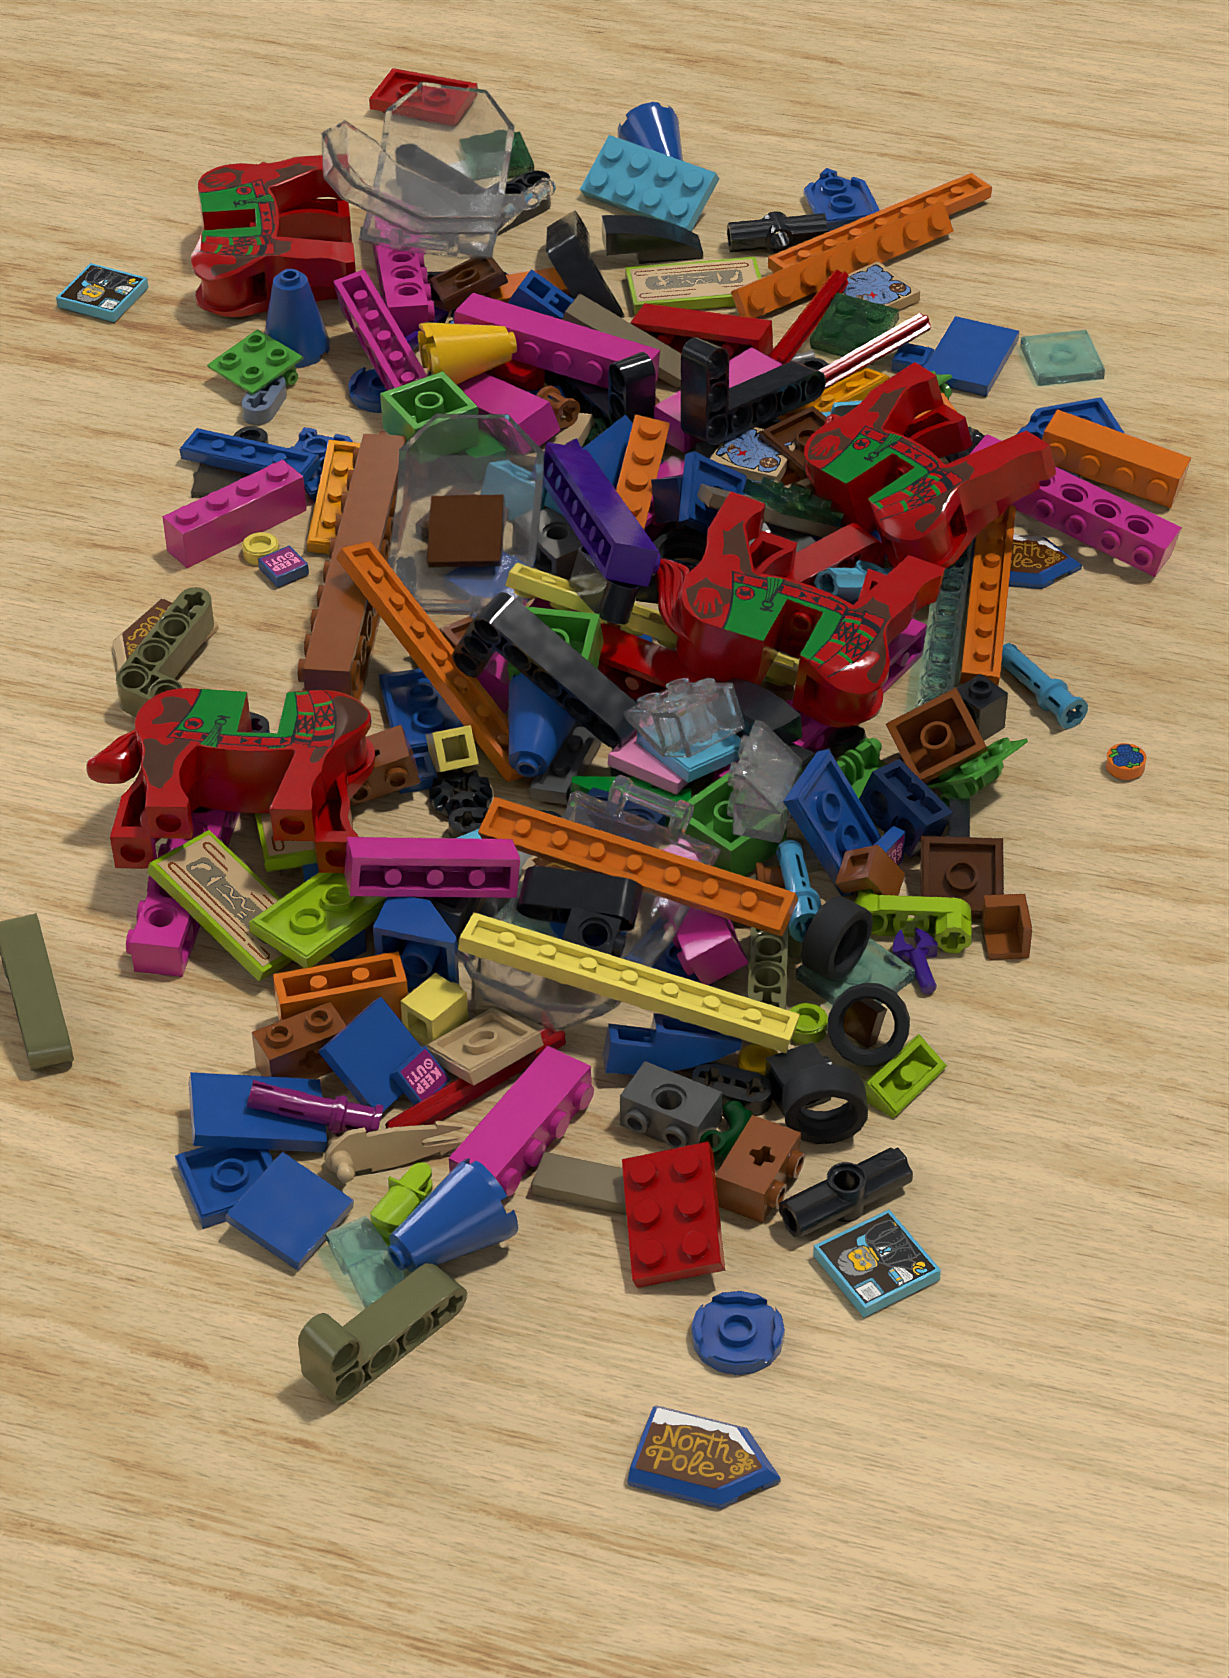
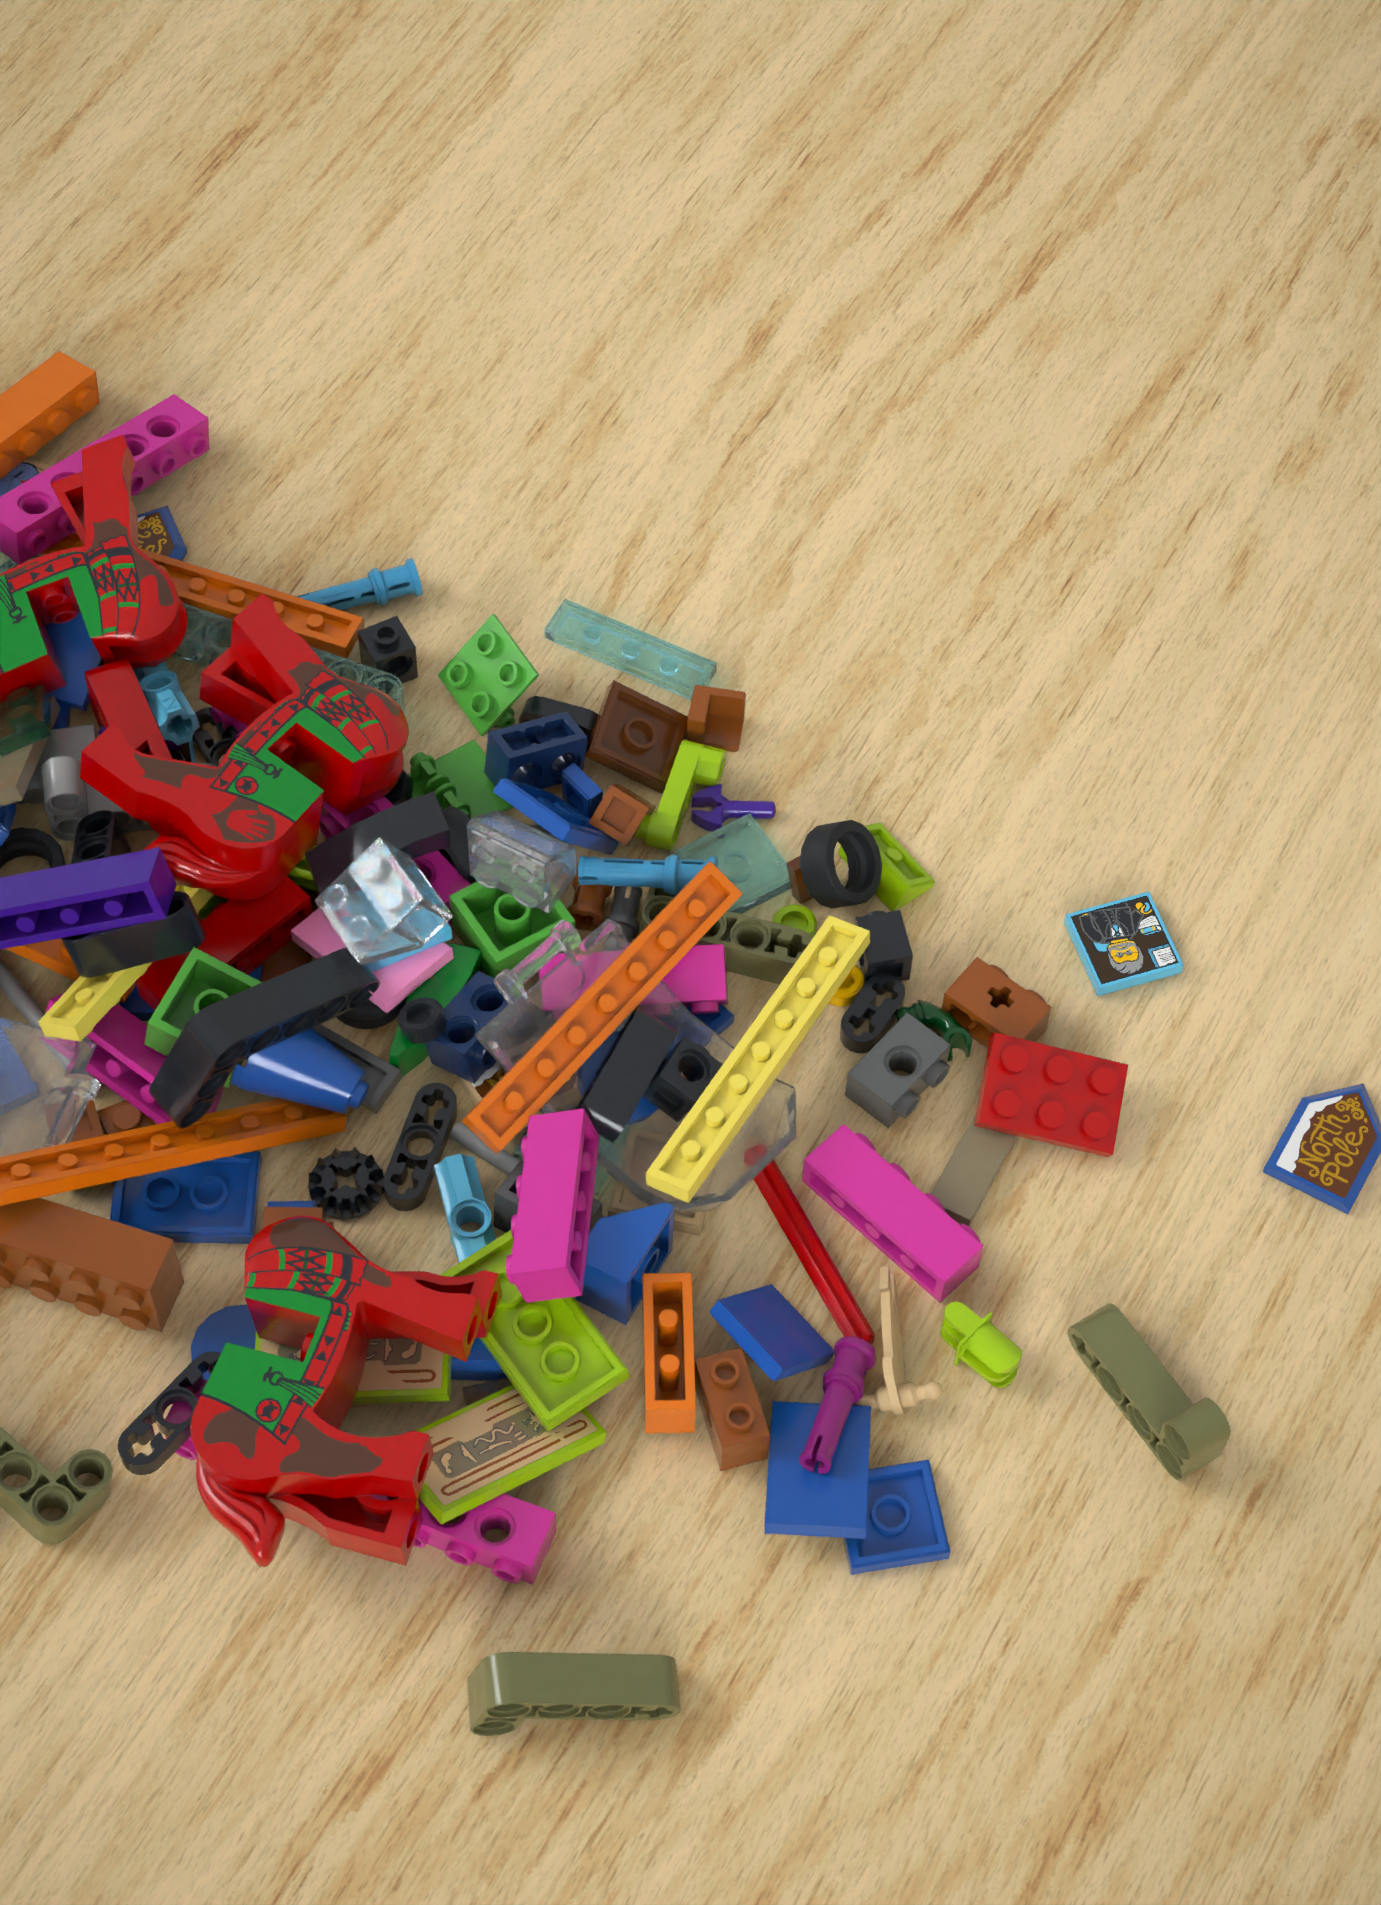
camera: 80 degrees left, 15 degrees up
(289, 1211) = (963, 1458): blue tile -> none
(364, 1258) = (1041, 1393): clear light blue slope -> none
(420, 1075) = (796, 1298): tile -> none
(434, 1009) = (709, 1261): light yellow brick -> none
(452, 748) = (291, 1170): light yellow brick -> none
(454, 1220) = (1028, 1294): blue cone -> none
(484, 1045) = (770, 1227): tan tile -> none
(598, 780) = (422, 1020): none -> black tile
(666, 1044) = (817, 1064): blue slope -> none
(737, 1333) = (1186, 1080): blue tile -> none
(825, 1082) = (940, 928): black tyre -> none
(836, 938) = (736, 852): black tyre -> none
(845, 1192) = (1049, 963): black piece -> none
(937, 736) = (450, 696): dark orange slope -> none
(1063, 866) = (629, 649): none -> clear light blue tile
(1125, 761) = (494, 555): tile -> none

